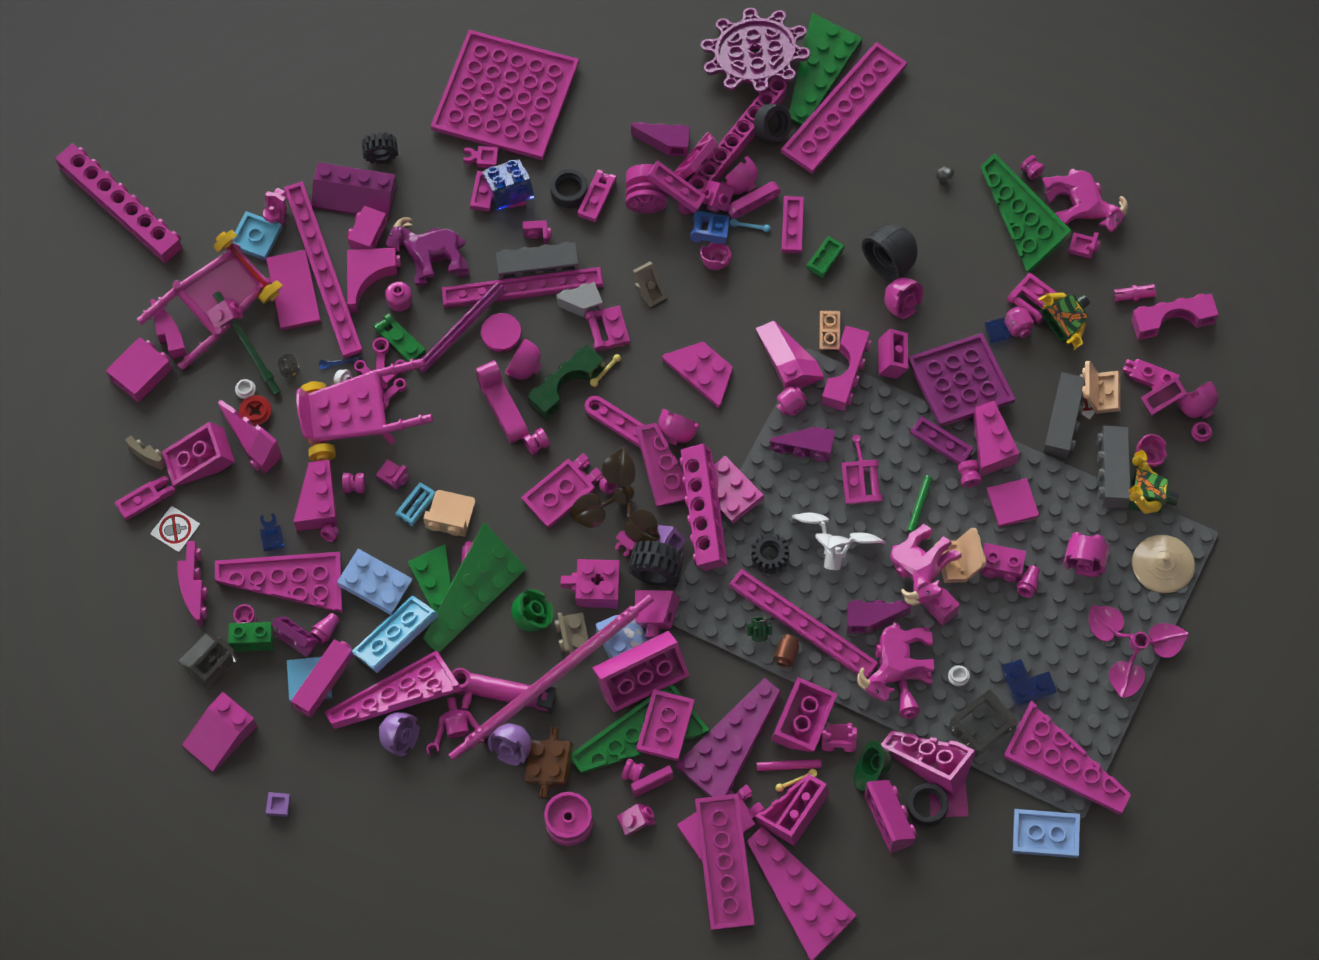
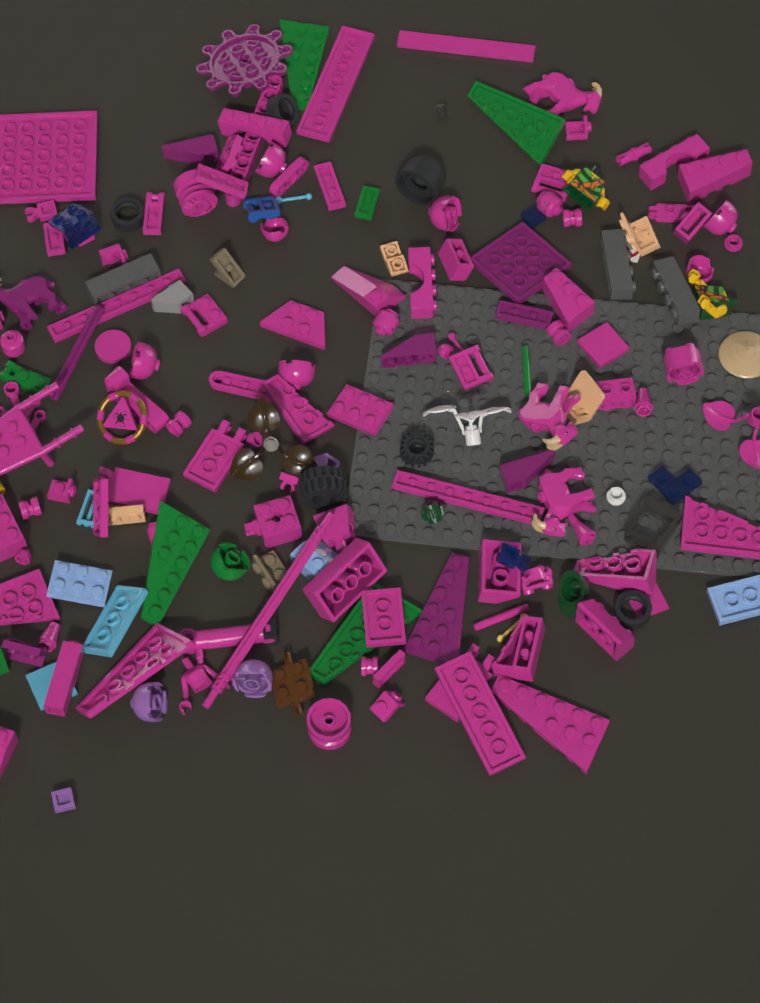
camera: 20 degrees left, 5 degrees down
(421, 509) = (100, 507): none -> dark pink tile
(432, 575) = (128, 562): green wing -> none
(463, 498) = (135, 488): none -> dark pink tile
(480, 416) = (121, 417): none -> piece
(583, 365) = (195, 350): dark green arch -> none
(594, 382) = (209, 362): light yellow hinge -> none
(715, 555) = (370, 465): dark pink brick -> none
(717, 196) = (258, 181): dark pink brick -> none
(753, 142) = (271, 129): none -> dark pink arch
(786, 651) = (463, 523): copper brick -> none
(817, 707) = (510, 557): none -> clear blue plate
(842, 453) = (445, 351): none -> dark pink hinge
(943, 607) = (580, 445): dark pink slope -> none
(1002, 107) = (466, 46): none -> dark pink tile
(1032, 167) = (510, 83): dark pink wheel -> none
(1034, 343) = (572, 217): none -> dark pink wheel
(1210, 344) = (712, 174): none -> dark pink wedge

